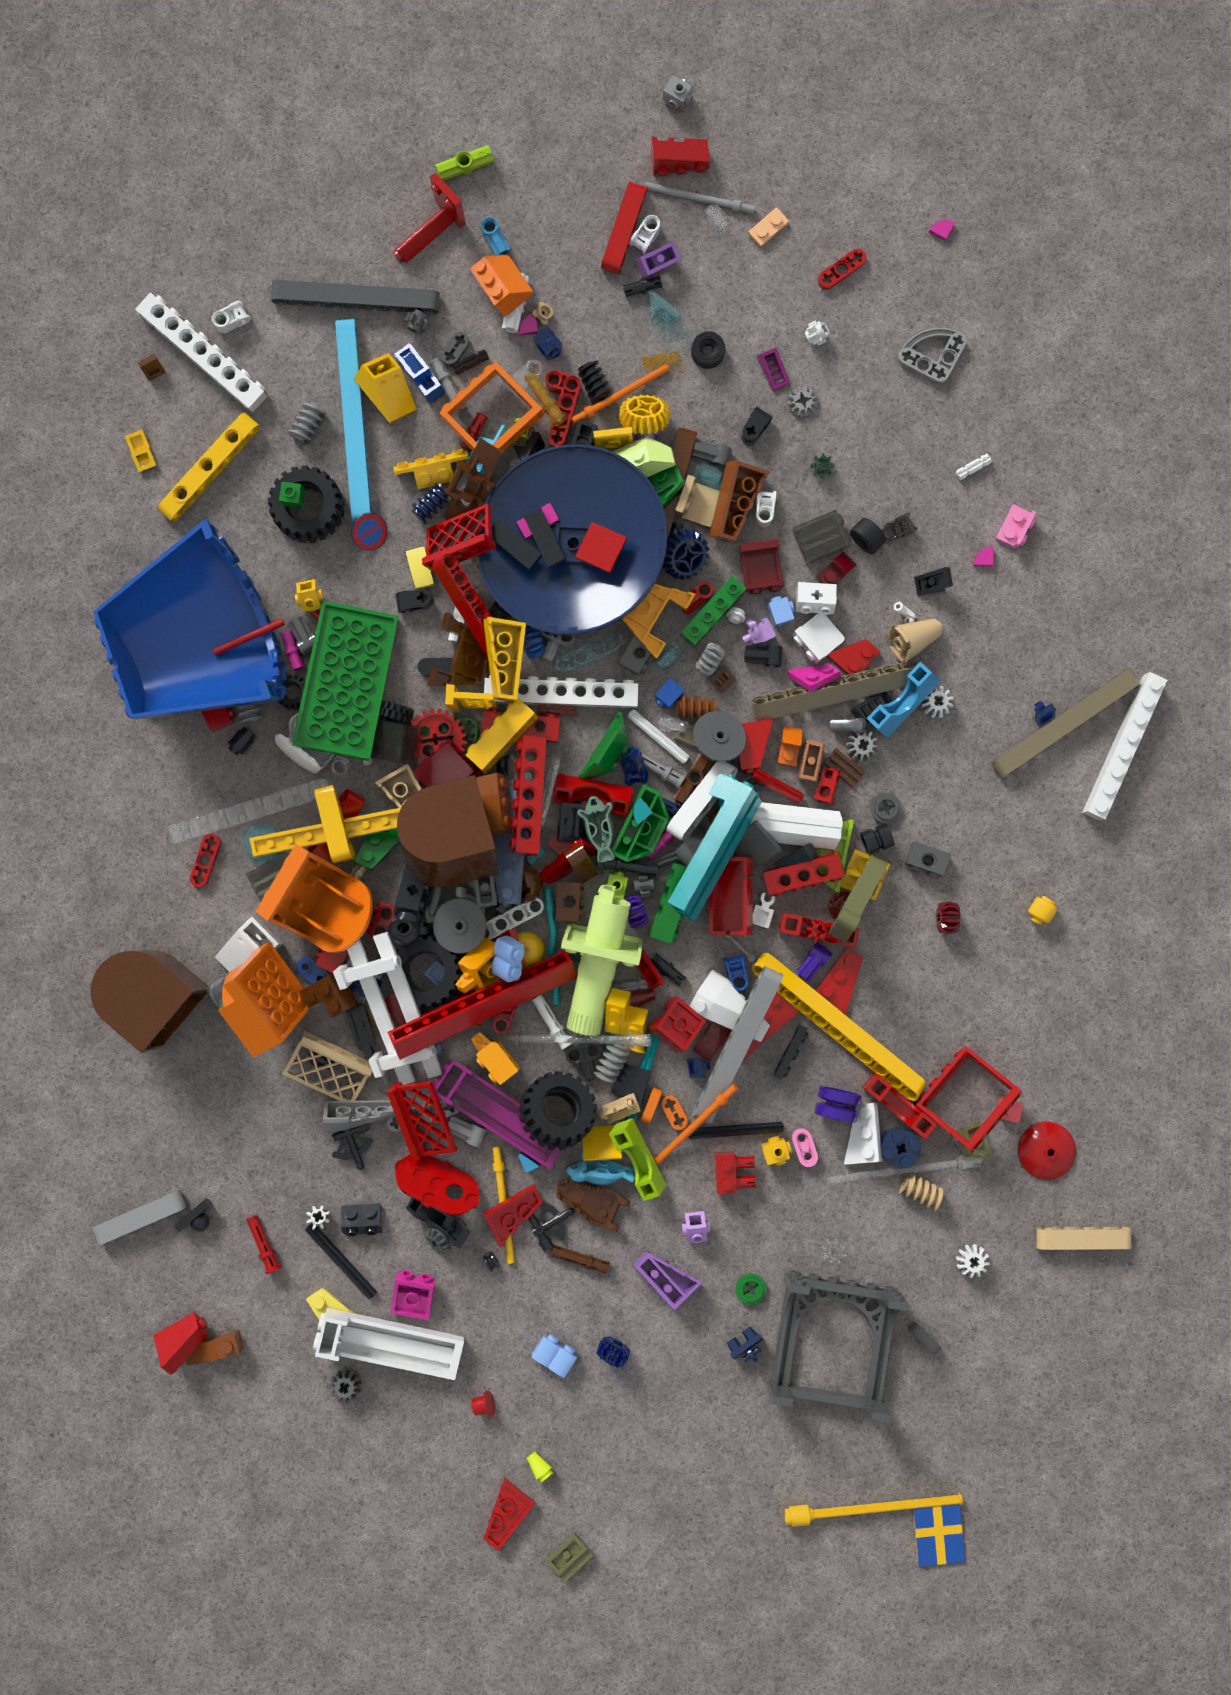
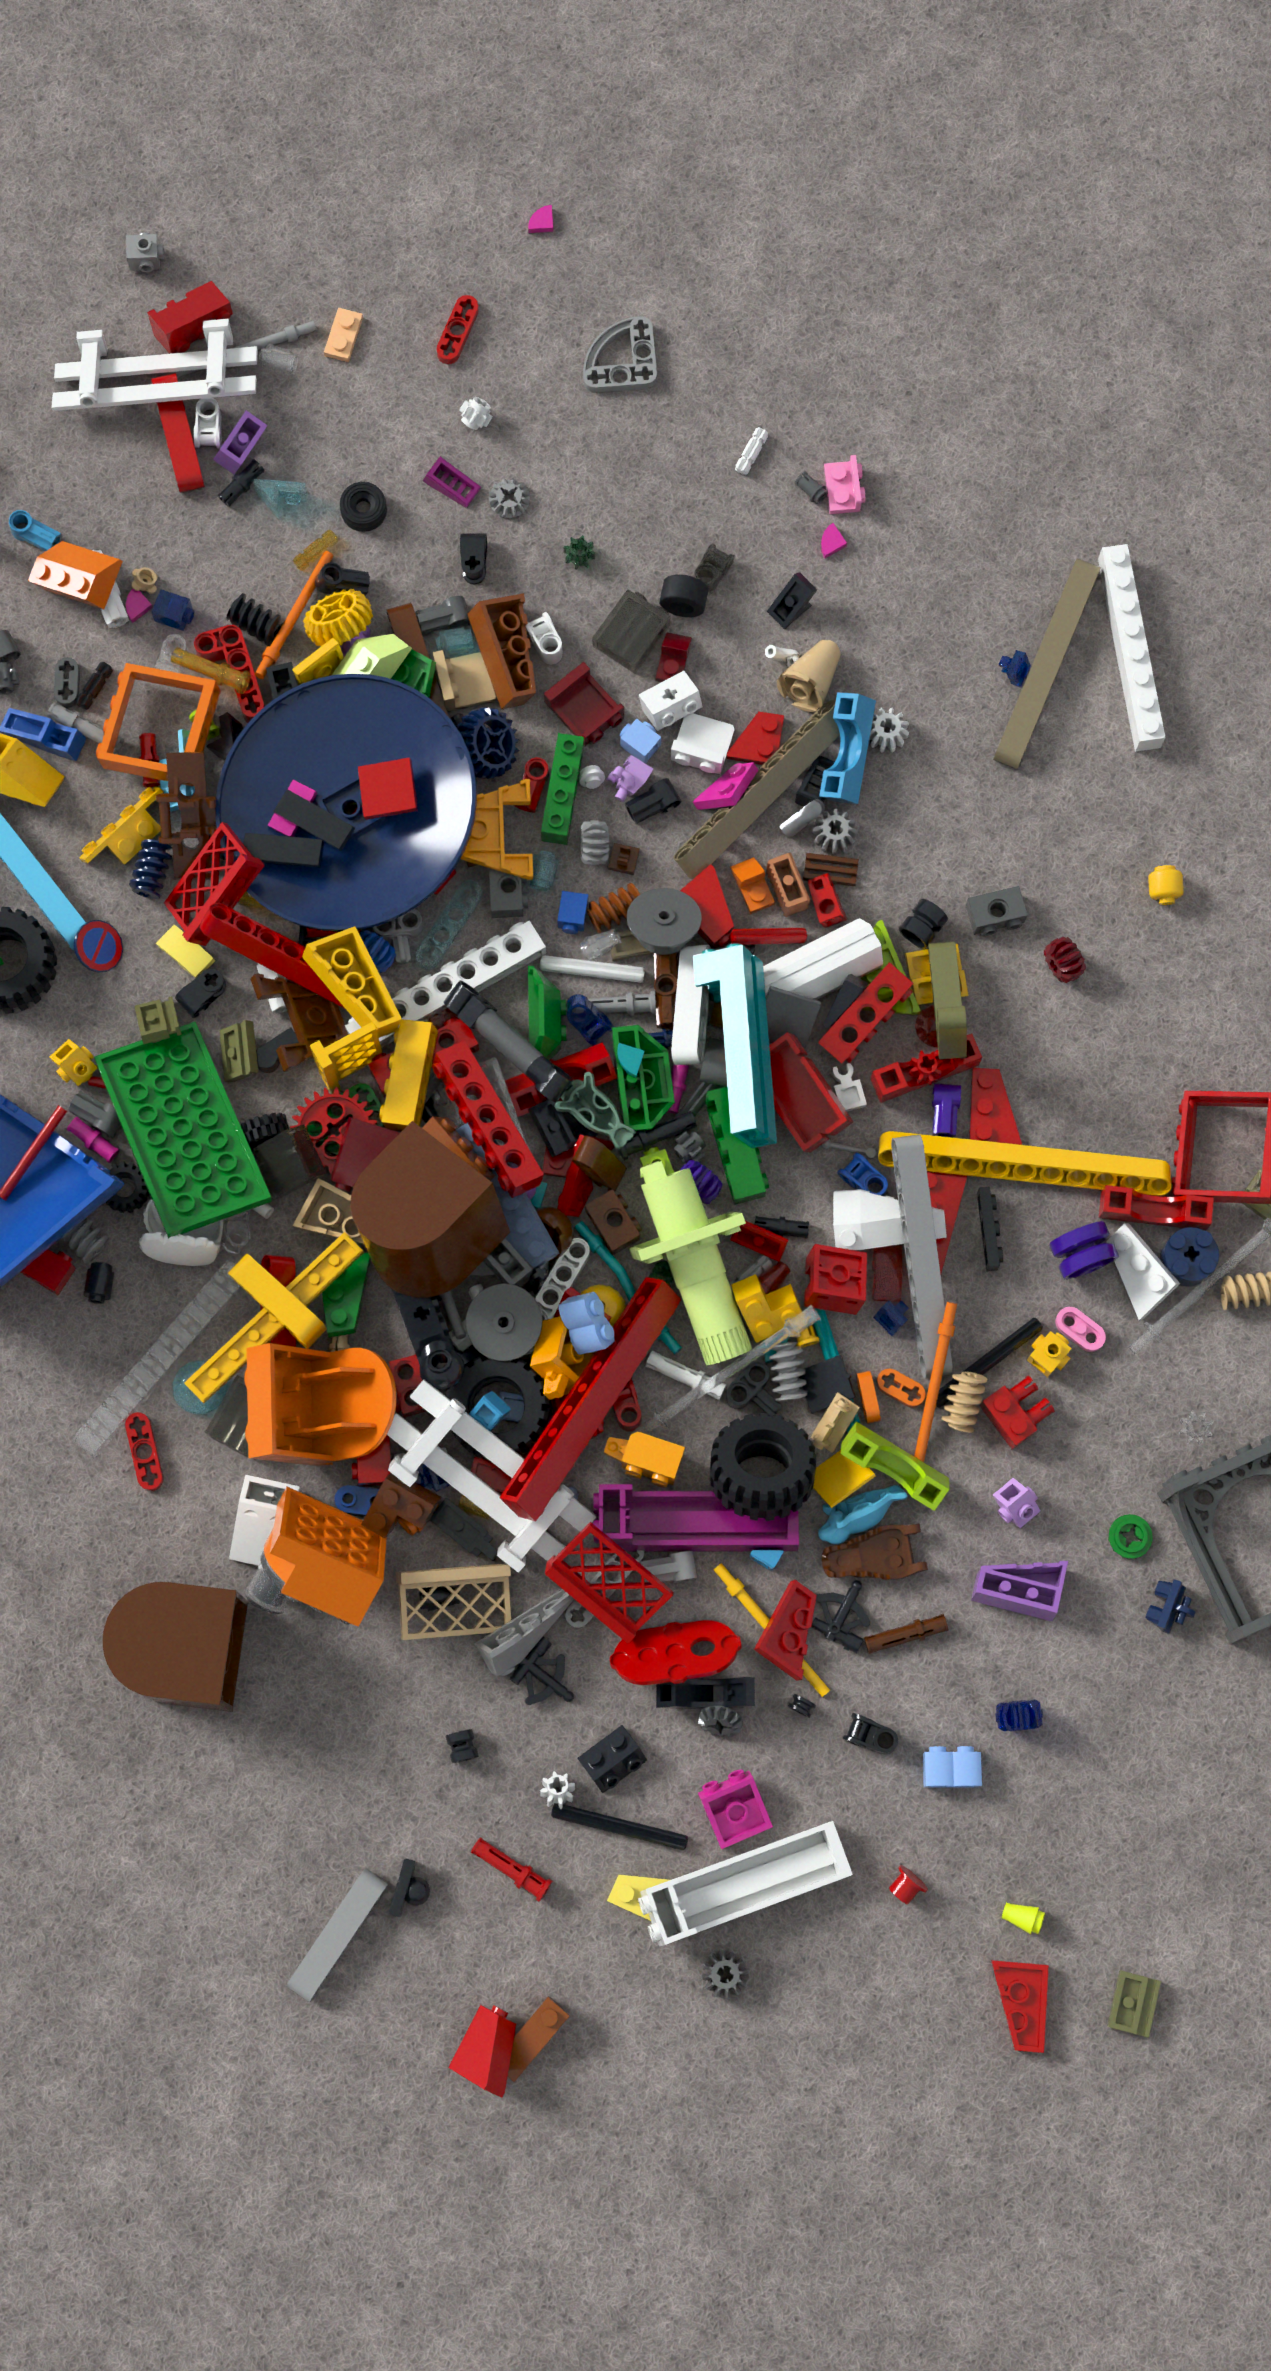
camera: 30 degrees left, 10 degrees down
(279, 1155) = (463, 1752): none -> black wheel
(375, 601) = (157, 1020): none -> olive plate
(412, 652) = (238, 1051): none -> olive plate
(417, 973) = (490, 1411): none -> dark azure slope
(518, 1304) = (869, 1734): none -> black piece
(568, 725) = (482, 1016): none -> piece
(665, 391) = (343, 579): none -> black piece
(674, 193) = (215, 360): none -> white fence
(705, 1147) = (965, 1401): none -> tan piece
(889, 799) = (909, 872): dark grey gear -> none
(995, 515) = (814, 490): none -> dark grey pin

